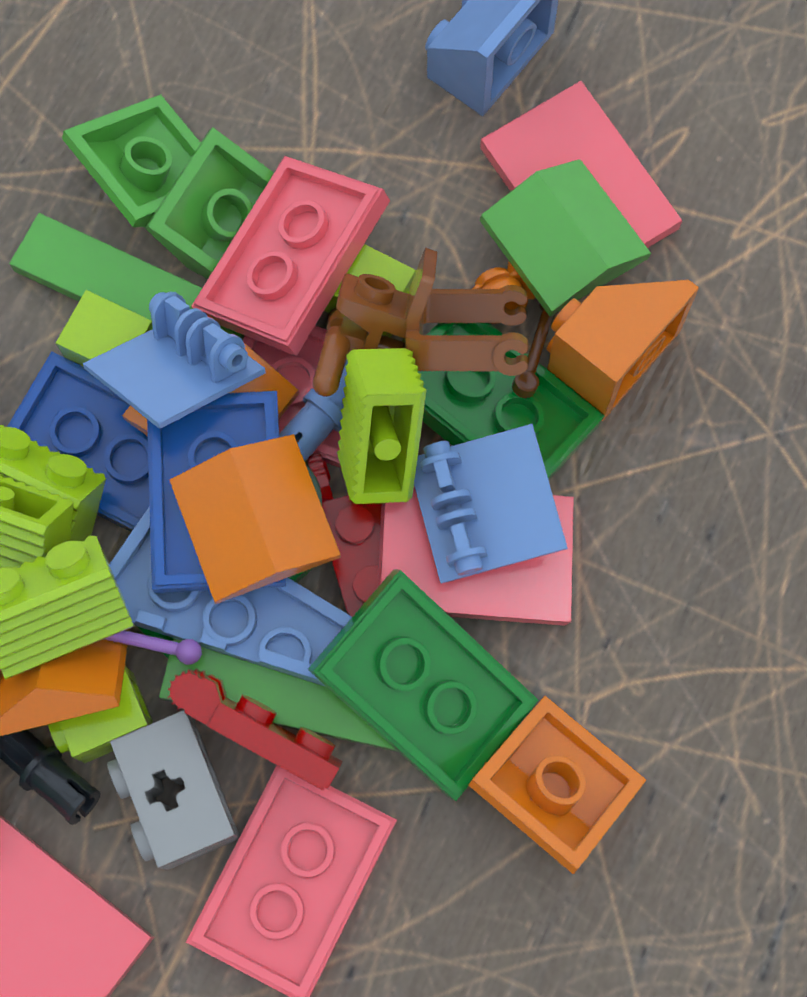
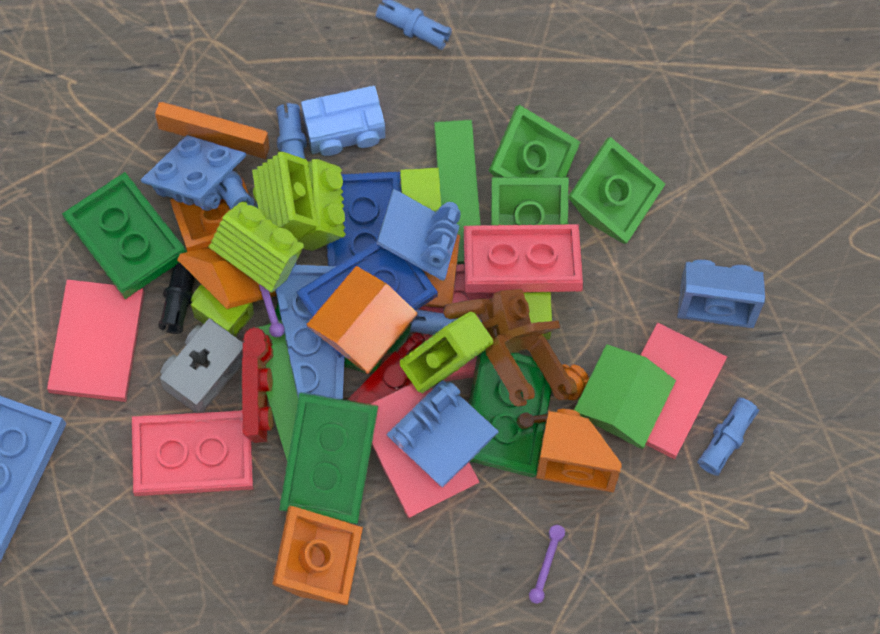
camera: 55 degrees right, 5 degrees down
(264, 87) = (615, 191): none -> bright green slope
(690, 142) = (728, 436): none -> medium blue pin
(699, 439) = (556, 535): none -> medium lavender hinge

